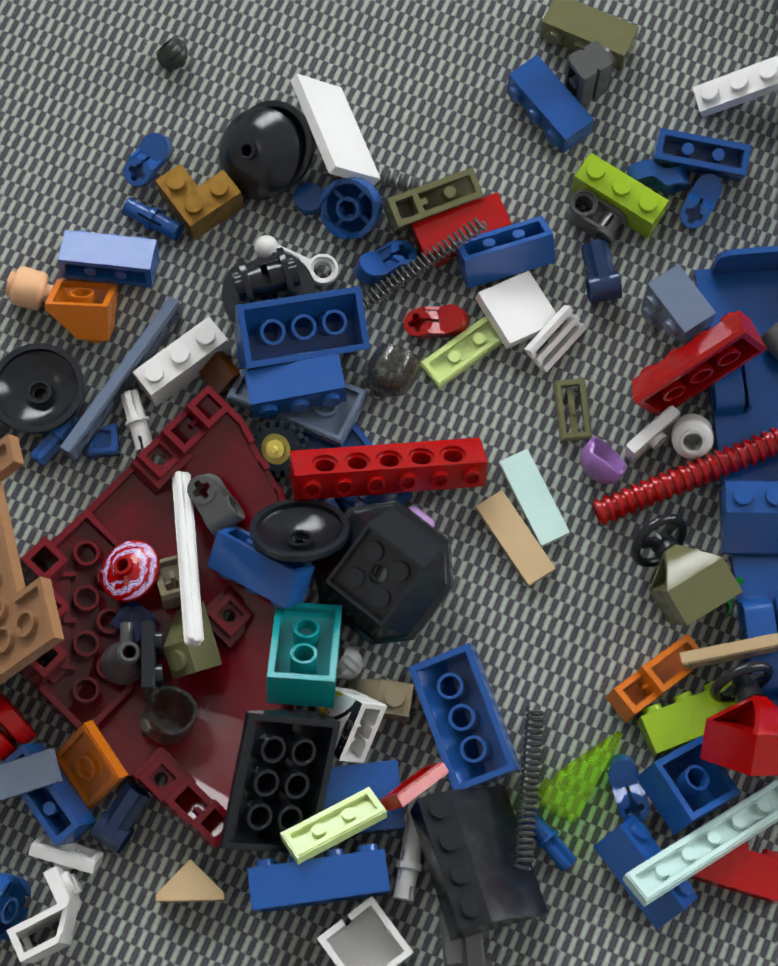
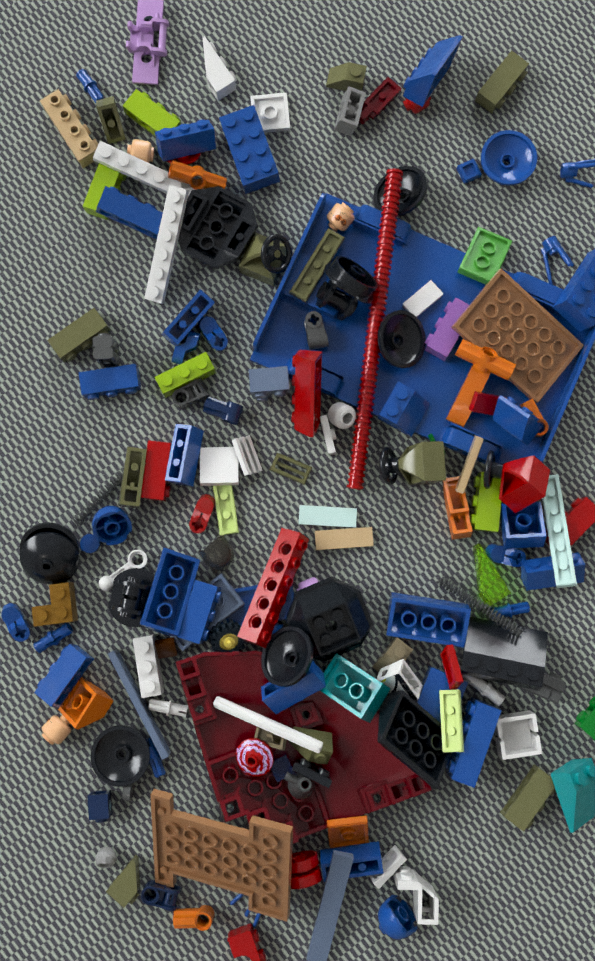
camera: 65 degrees left, 10 degrees up
(105, 442) = (170, 731): blue tile -> none
(116, 824) = (383, 828): dark blue piece -> none
(168, 715) = (346, 777): clear smoke helmet -> none
(190, 885) = (439, 807): tan slope -> none
(217, 506) = (244, 691): dark grey piece -> none
(334, 129) = (60, 509): white tile -> none
(349, 662) = (364, 662): light grey piece -> none
(386, 260) = (150, 531): blue piece -> none
(428, 262) = (165, 505): dark grey piece -> none
(601, 462) = (329, 470): medium lavender hair -> none

